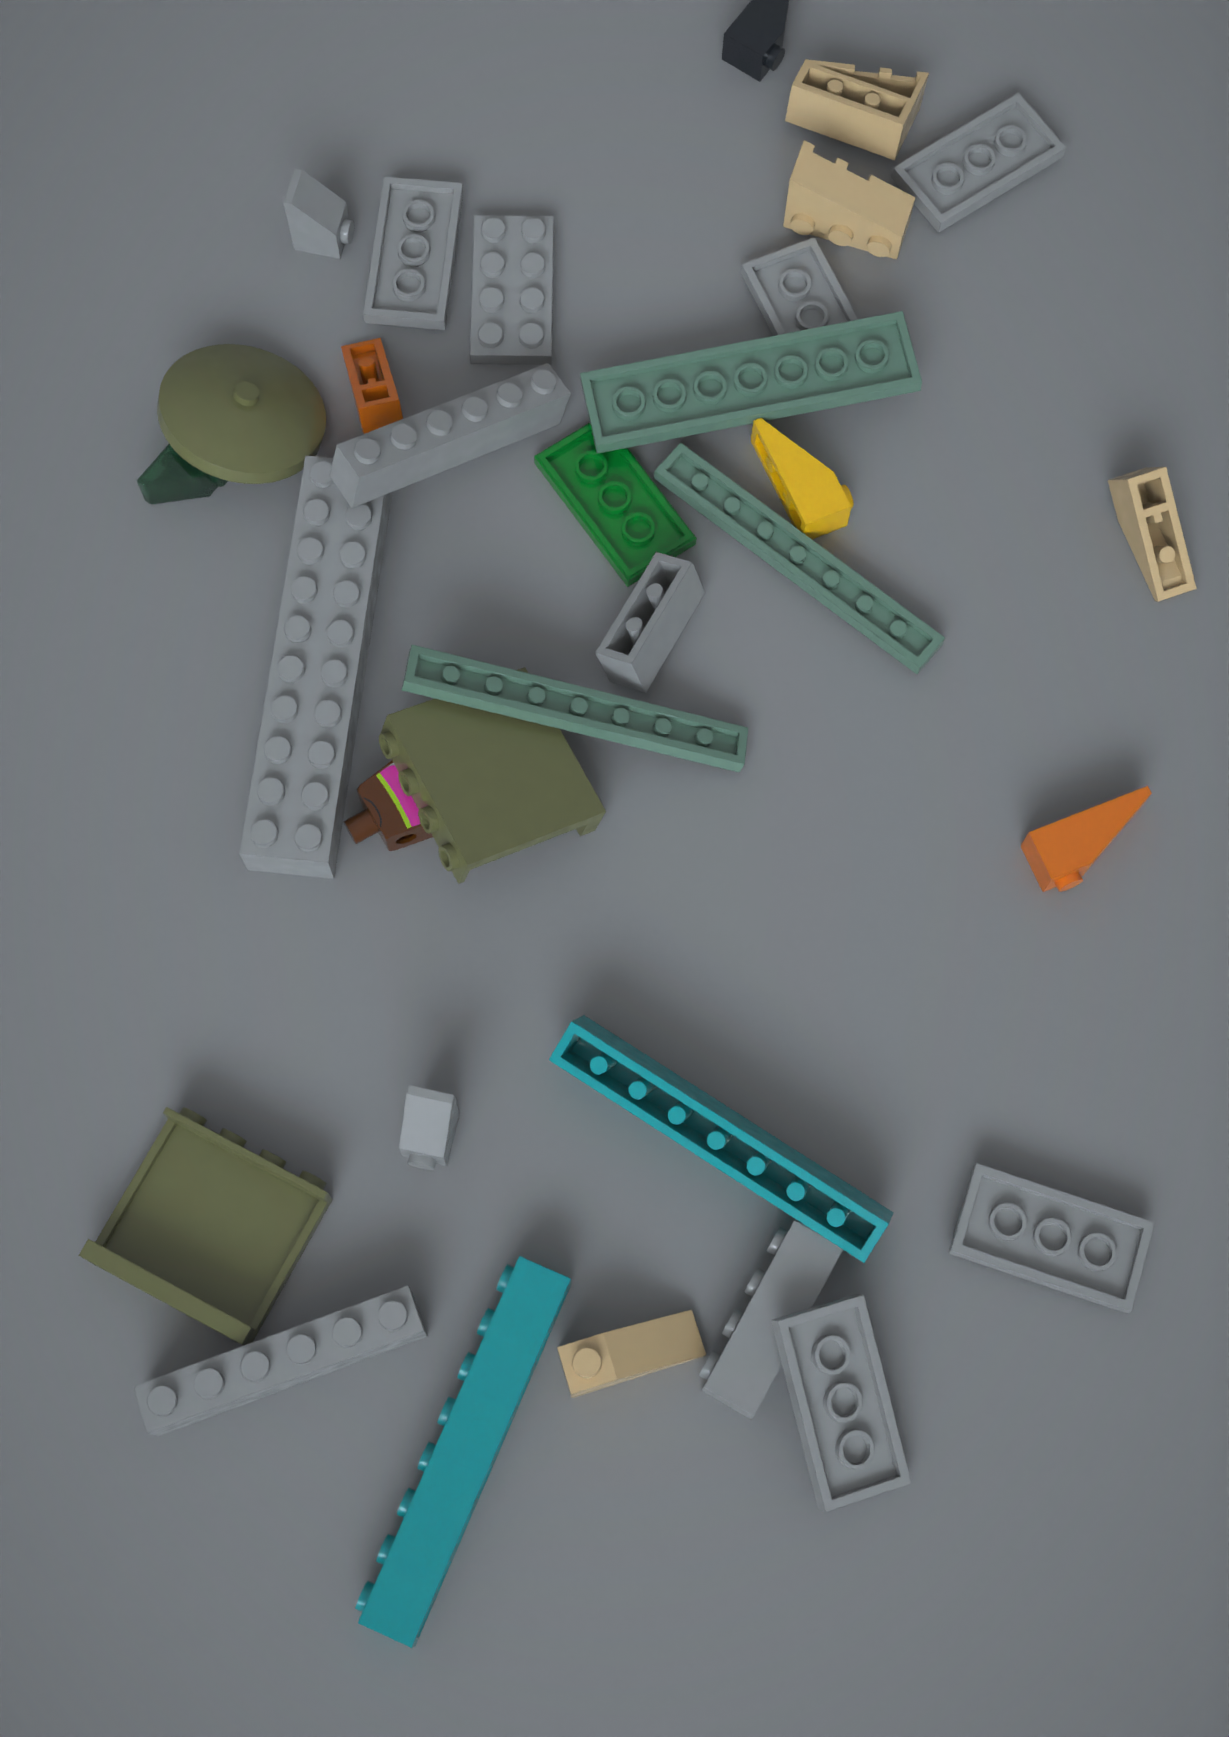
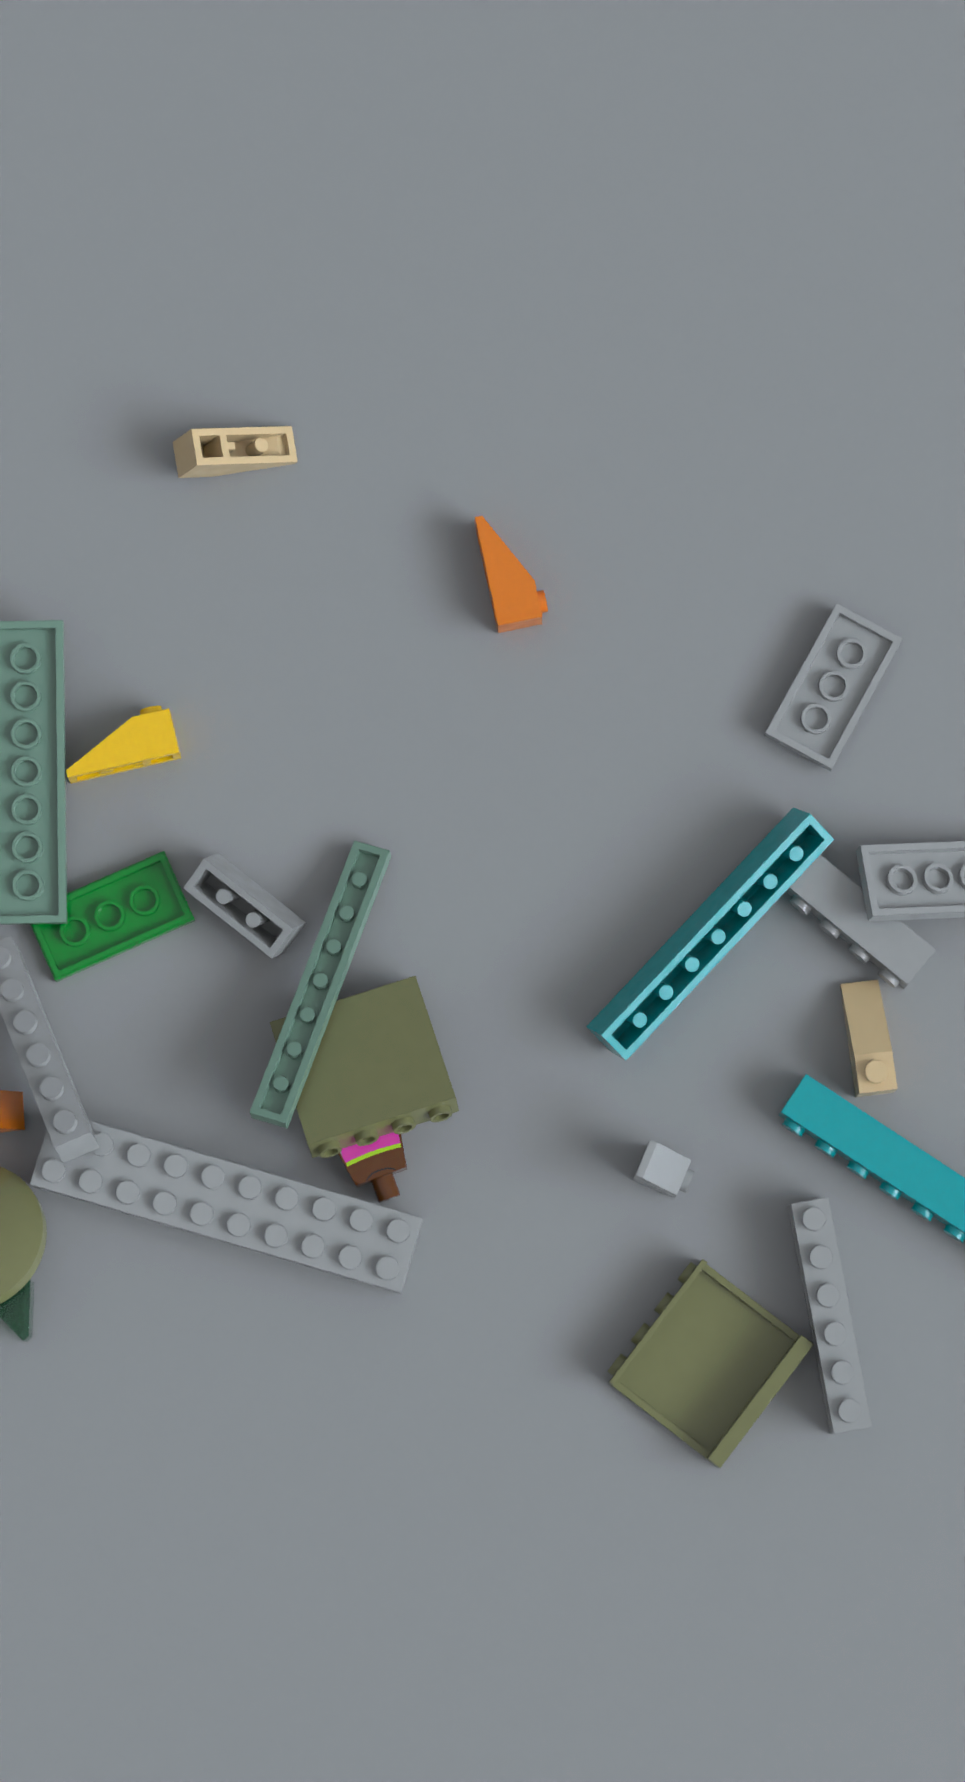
camera: 80 degrees left, 10 degrees up
(799, 558) = (199, 765): sand green plate -> none

